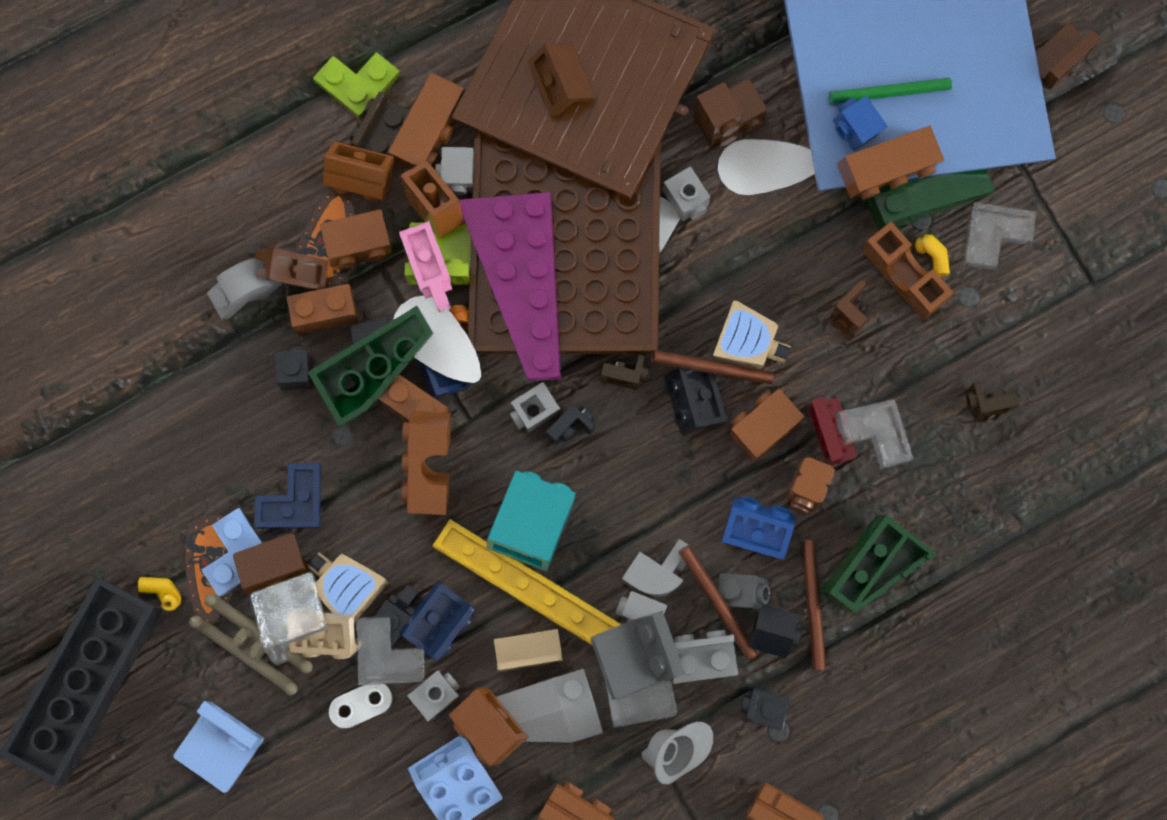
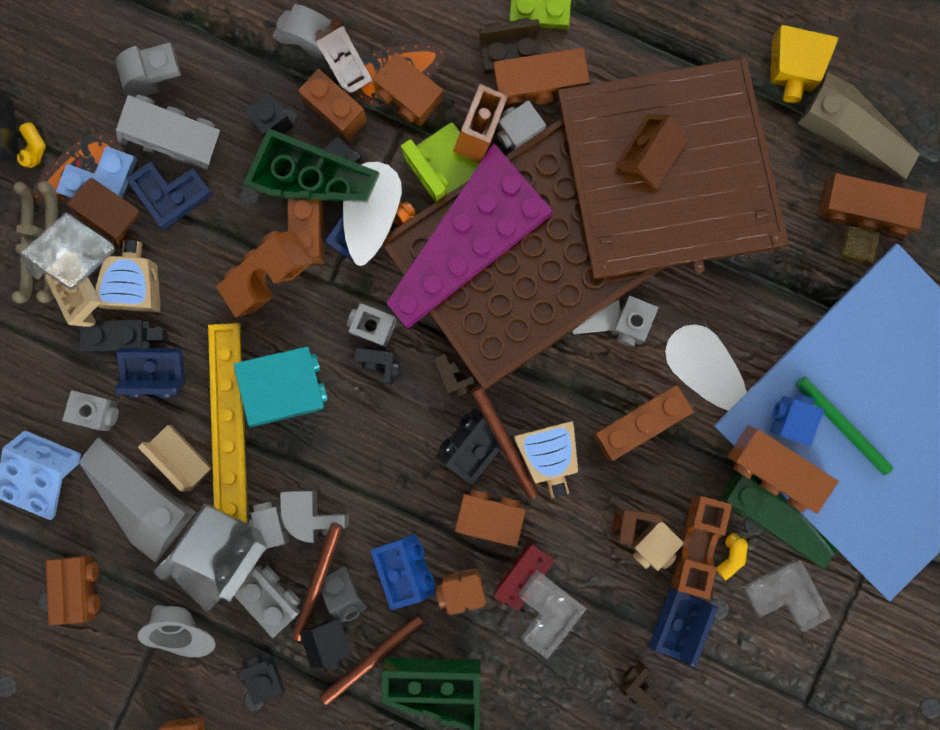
camera: 55 degrees right, 5 degrees up
(170, 446) = (143, 69): none -> light grey brick
(241, 463) = (167, 131): none -> light grey wedge
(358, 171) = (462, 51): dark orange brick -> none
(360, 705) = (47, 358): white plate -> none
(379, 662) = (83, 351): clear plate -> none
(427, 263) = (419, 156): bright pink hinge -> none
(487, 726) = (90, 470): dark orange brick -> none
(727, 112) = (728, 306): reddish brown brick -> none
(775, 247) = (642, 423): none -> dark orange brick
(883, 307) = (656, 546): none -> tan brick
(962, 332) = (683, 626): none -> dark blue bracket

